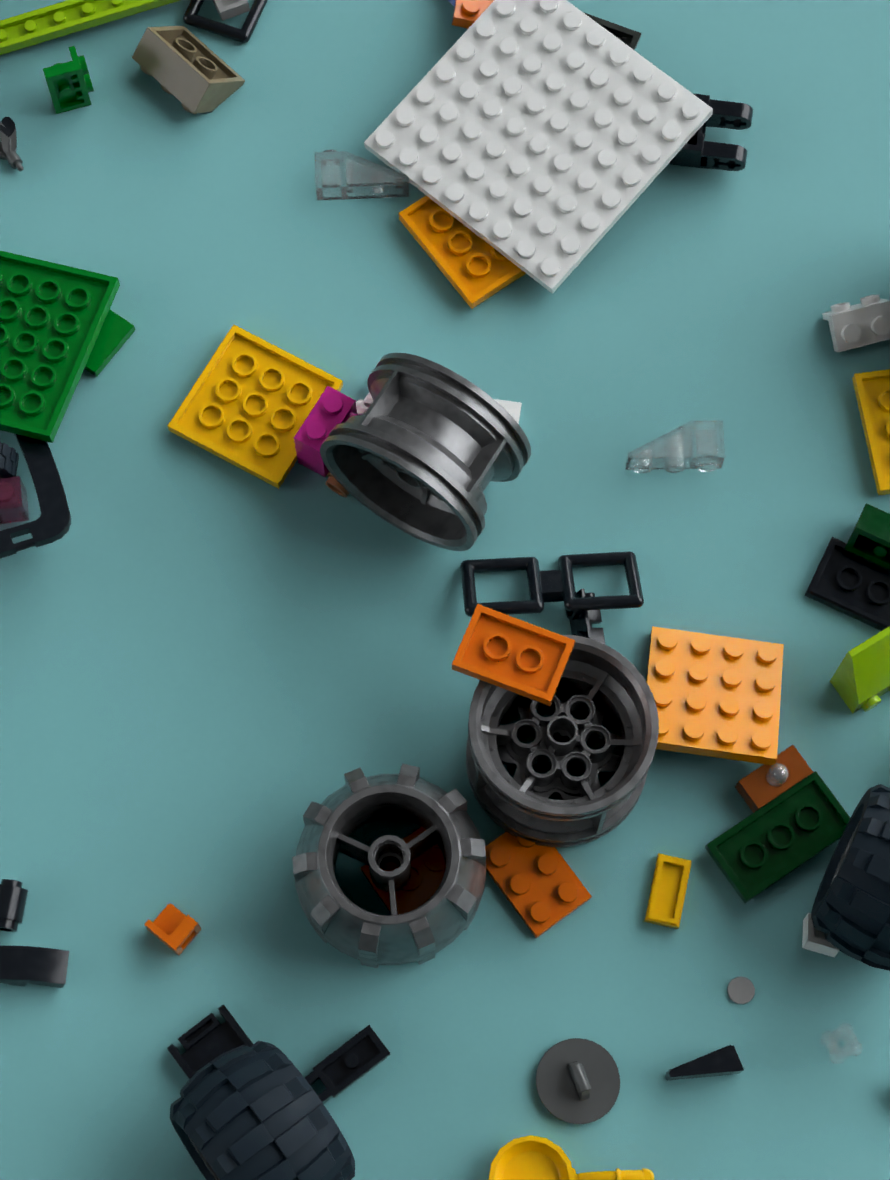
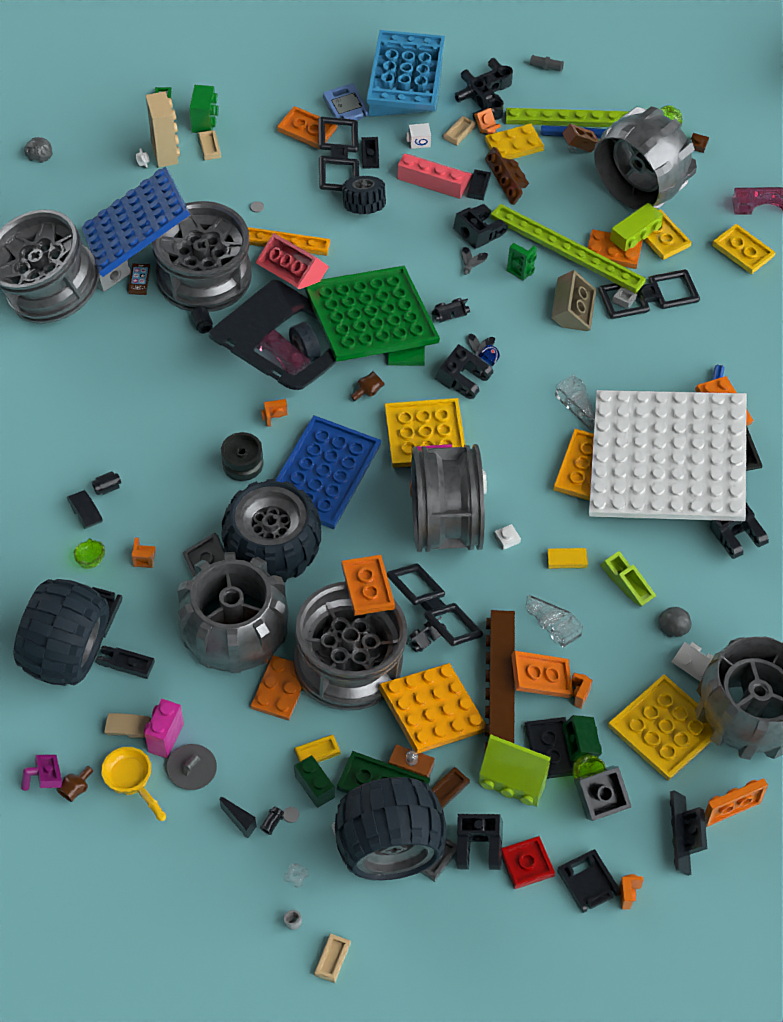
camera: 55 degrees right, 15 degrees down
(59, 580) = (274, 409): none -> orange bracket
(74, 219) = (443, 311): none -> black hinge
(117, 427) = (368, 385): none -> reddish brown piece
(118, 662) = (242, 456): none -> pearl dark grey wheel
(118, 1008) = (89, 553): none -> clear neon green hair
(165, 241) = (476, 346): none -> dark grey piece
(178, 293) = (458, 361): none -> black brick
(190, 233) = (490, 354): none -> clear blue tile
(218, 585) = (329, 466): none -> blue plate
(251, 843) = (208, 549): none -> dark grey tile
(290, 680) = (266, 512): none -> wheel
(454, 1132) = (126, 724): none -> tan slope
(505, 1084) = (163, 728): none -> dark pink brick
(591, 366) = (567, 558): none -> yellow tile
(679, 315) = (628, 579): none -> lime slope
(721, 926) = (314, 781): none -> dark green brick
(734, 584) = (500, 676): none -> reddish brown brick
(739, 1022) = (272, 820): none -> black pin
(758, 522) = (542, 674): none -> orange plate
(782, 306) = (675, 621): none -> dark grey hair
(812, 489) = (583, 687): none -> orange bracket
(837, 756) = (450, 786): none -> reddish brown tile

